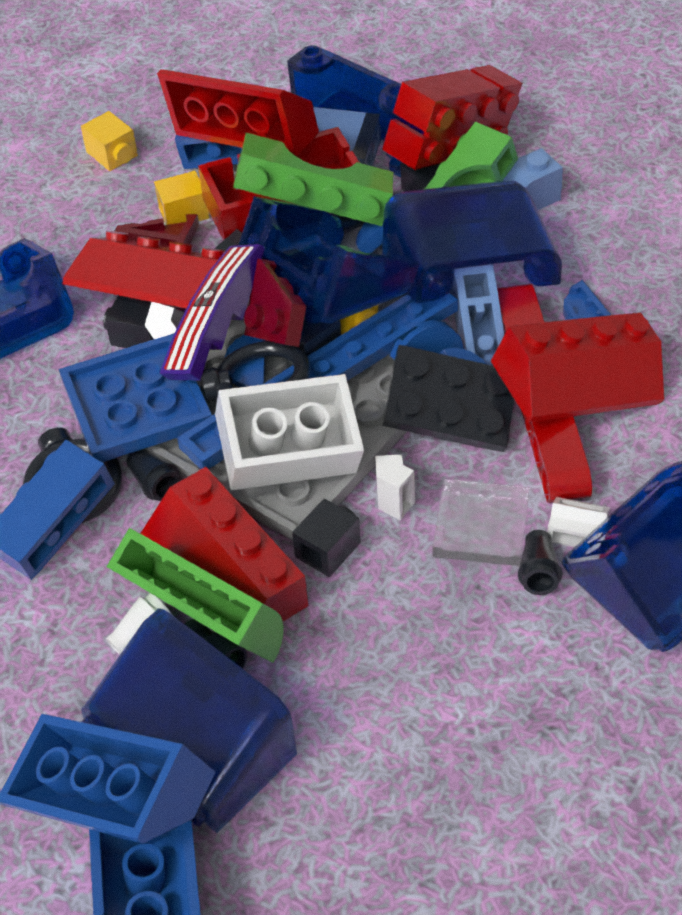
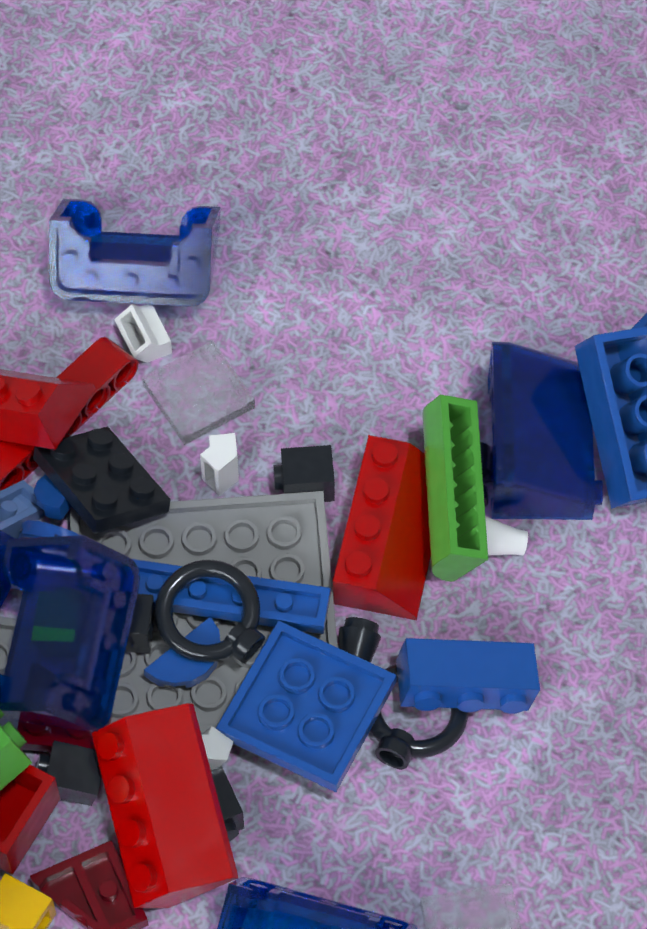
camera: 135 degrees left, 10 degrees up
(217, 301) = (182, 680): slope -> none
(274, 309) = (145, 626): dark red wing -> none
(288, 431) = (259, 527): white brick -> none
(539, 565) = (207, 326): black cone -> none

